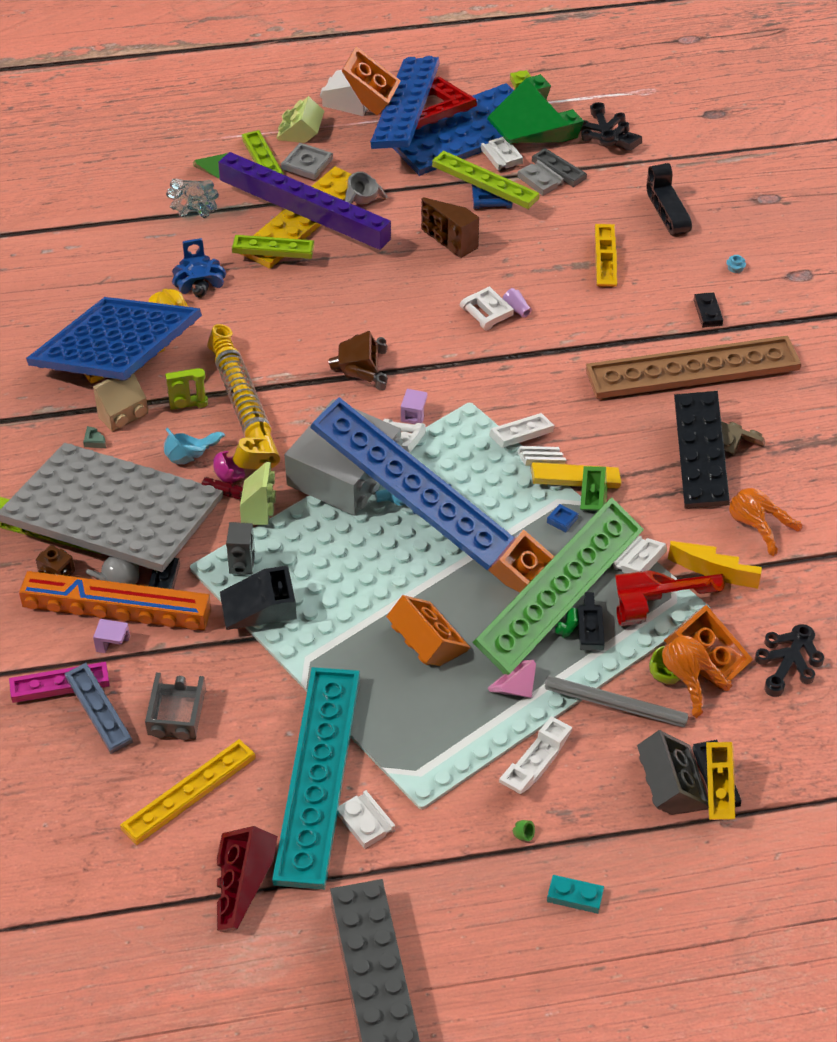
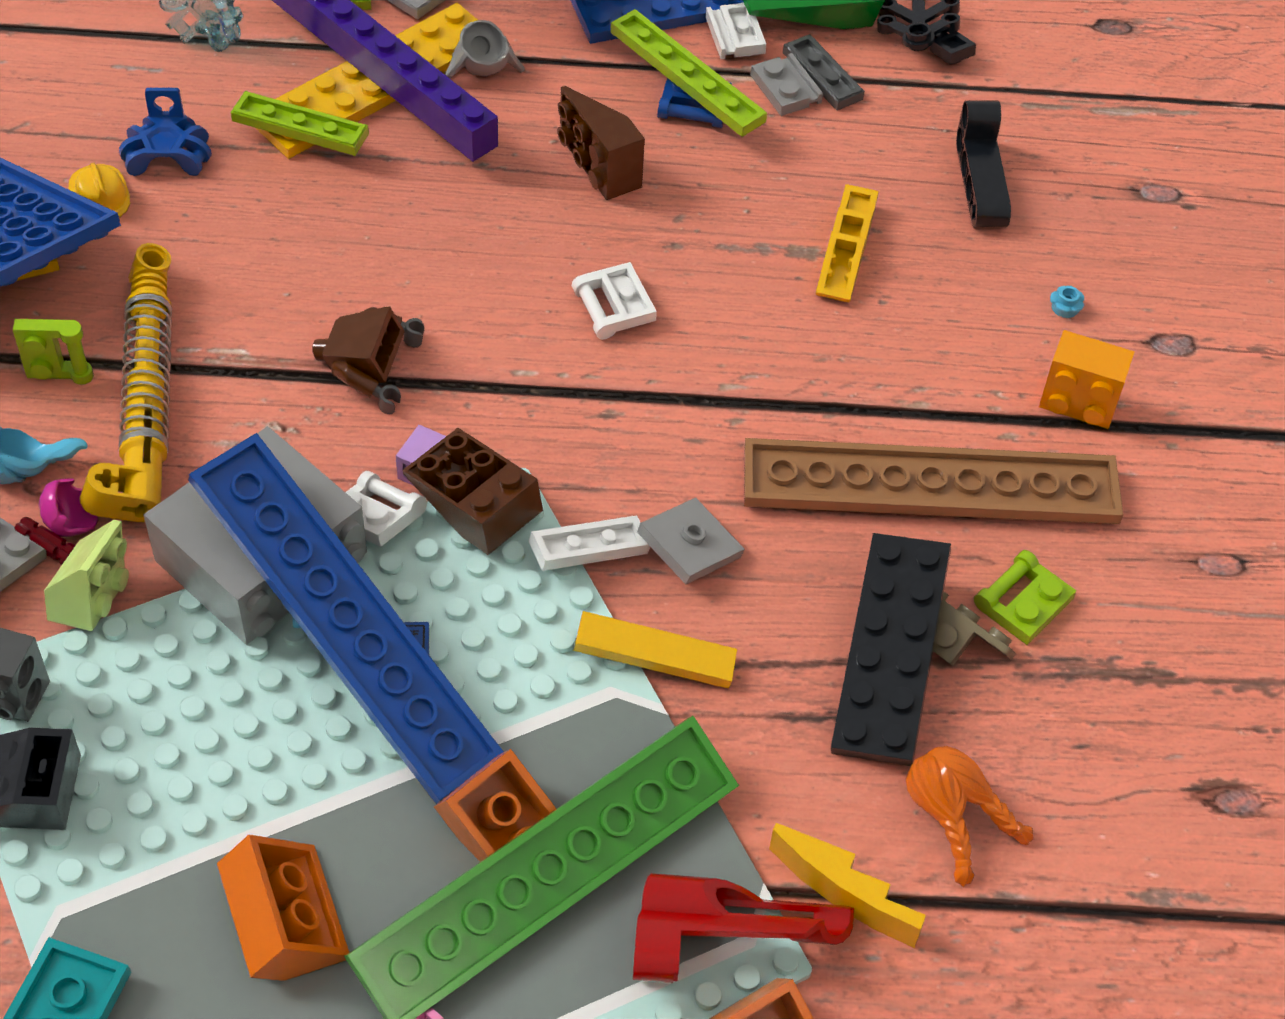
camera: 10 degrees right, 5 degrees up
(201, 288) = (160, 172): black arm -> none
(452, 414) = (476, 489): none -> reddish brown slope
(517, 302) = (667, 299): lavender cone -> none
(540, 455) = (609, 594): white tile -> none
(562, 518) = (605, 728): blue tile -> none
(572, 622) = (544, 951): green arm -> none
(574, 419) = (690, 540): none -> light grey plate
(590, 624) = (577, 961): black hinge -> none
(593, 488) = (676, 685): bright green slope -> none
(640, 555) = (714, 839): white plate -> none
(708, 310) = (992, 377): black plate -> none
(761, 299) = (1086, 379): none -> light orange brick
(766, 419) = (1033, 606): none -> lime plate

